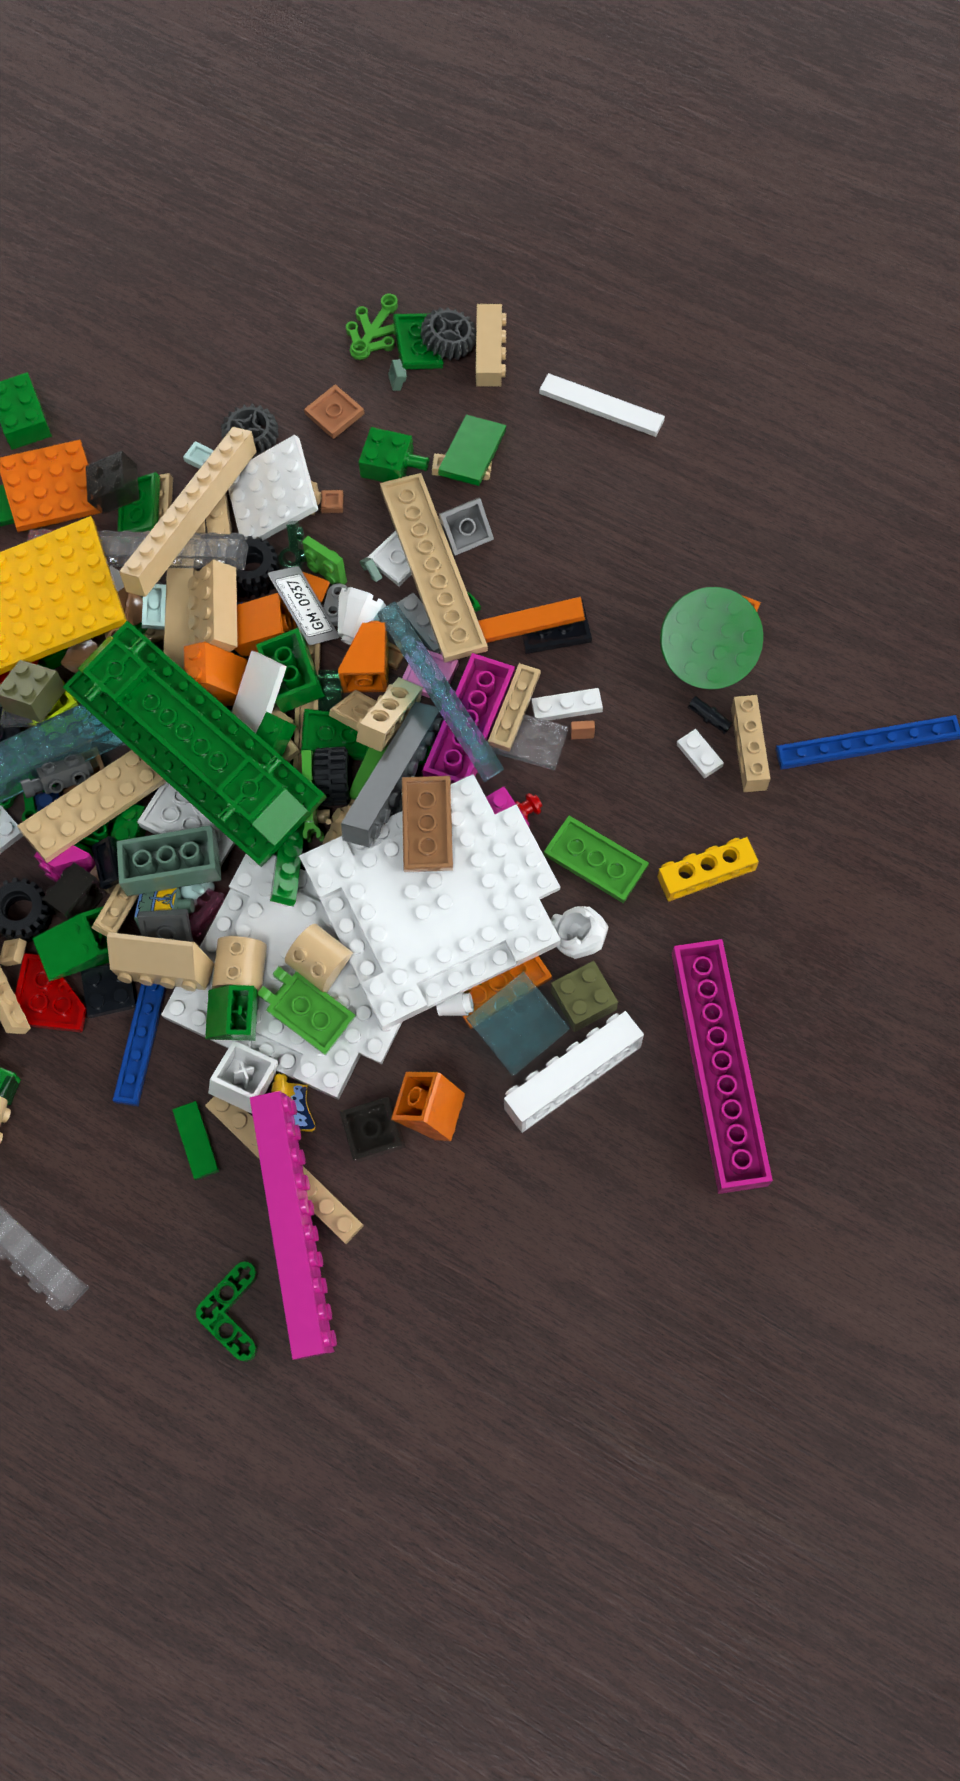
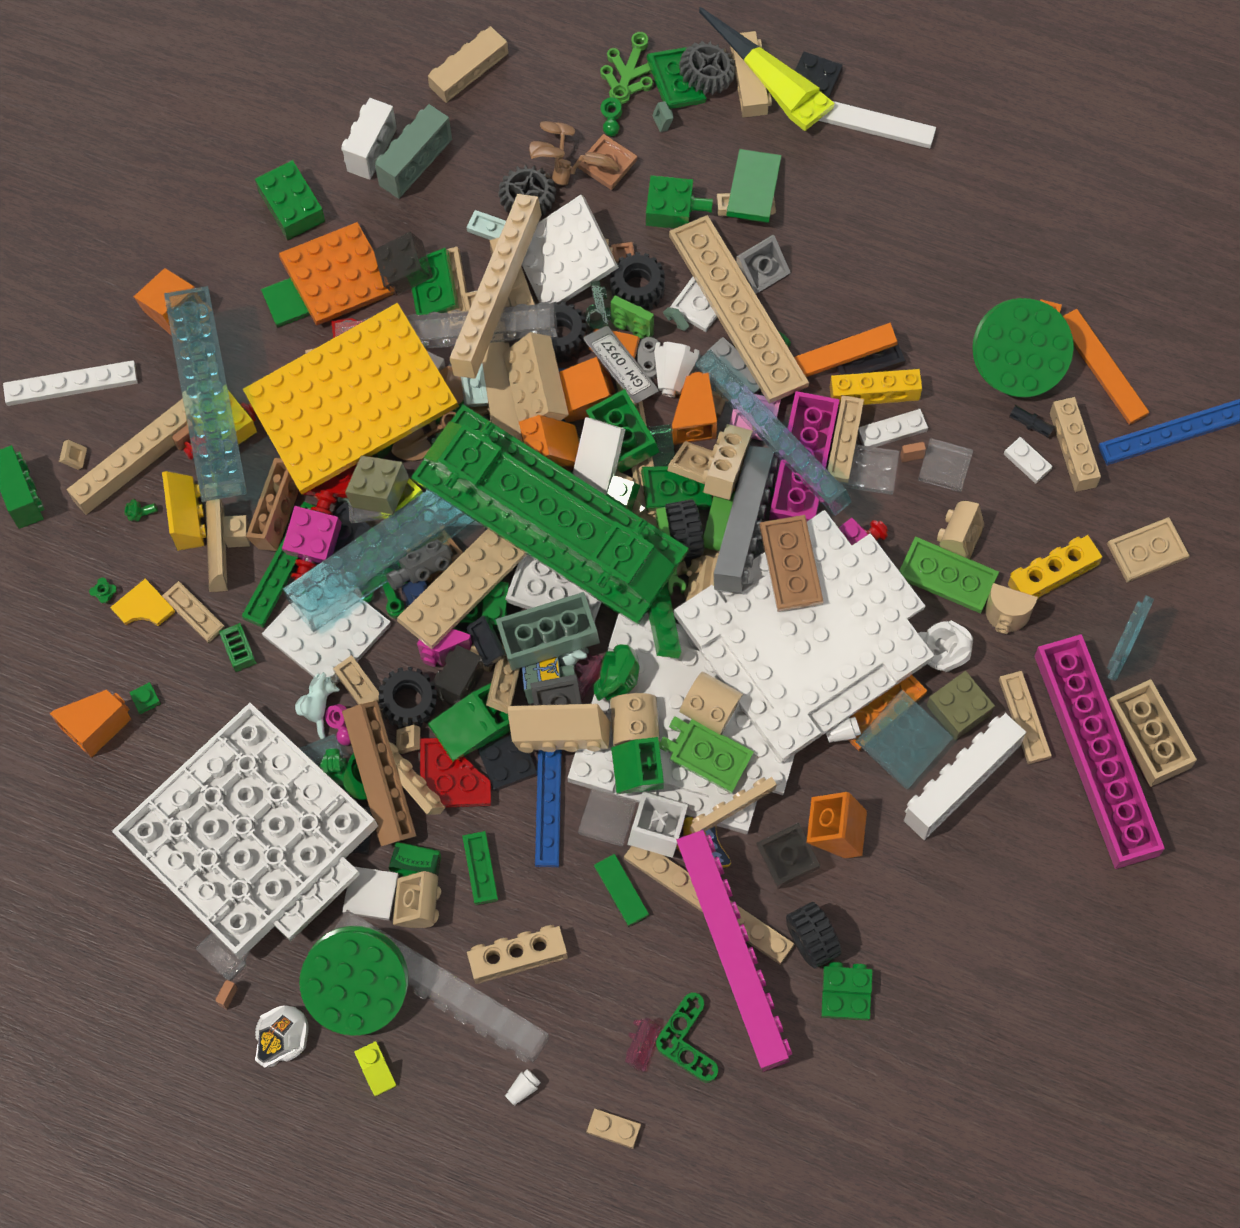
camera: 10 degrees left, 0 degrees up
(47, 1337) = (522, 1087): none -> white cone
(55, 1096) = (480, 868): none -> green plate
(106, 361) = (369, 138): none -> white brick
(112, 1194) = (508, 965): none -> tan brick
(133, 1397) = (613, 1128): none -> tan plate
(146, 378) = (413, 151): none -> sand green brick
(181, 1310) = (642, 1043): none -> clear pink plate
(195, 1061) = (607, 817): none -> clear tile
(219, 305) = (467, 64): none -> tan brick
(230, 913) = (618, 673): none -> green helmet
(288, 411) = (562, 167): none -> medium nougat plant
(312, 1073) = (740, 801): none -> tan plate
(335, 514) = (643, 267): none -> black tyre
(345, 379) = (611, 126): none -> green plate
(380, 1219) = (813, 935): none -> black tyre
(408, 1285) = (846, 992): none -> green plate
(526, 364) = (792, 91): none -> neon yellow plate
(554, 355) = (819, 71): none -> black plate
(559, 660) = (878, 386): none -> yellow brick
(614, 747) = (945, 465): none -> clear tile
(619, 814) = (963, 529): none -> tan brick
(650, 1018) = (1025, 715): none -> tan plate
(652, 902) = (1008, 608): none -> tan brick
(771, 949) = (1128, 637): none -> clear light blue plate
(779, 1053) = (1151, 733): none -> tan brick
(794, 671) = (1105, 369): none -> orange tile
(809, 861) = (1148, 549): none -> tan tile

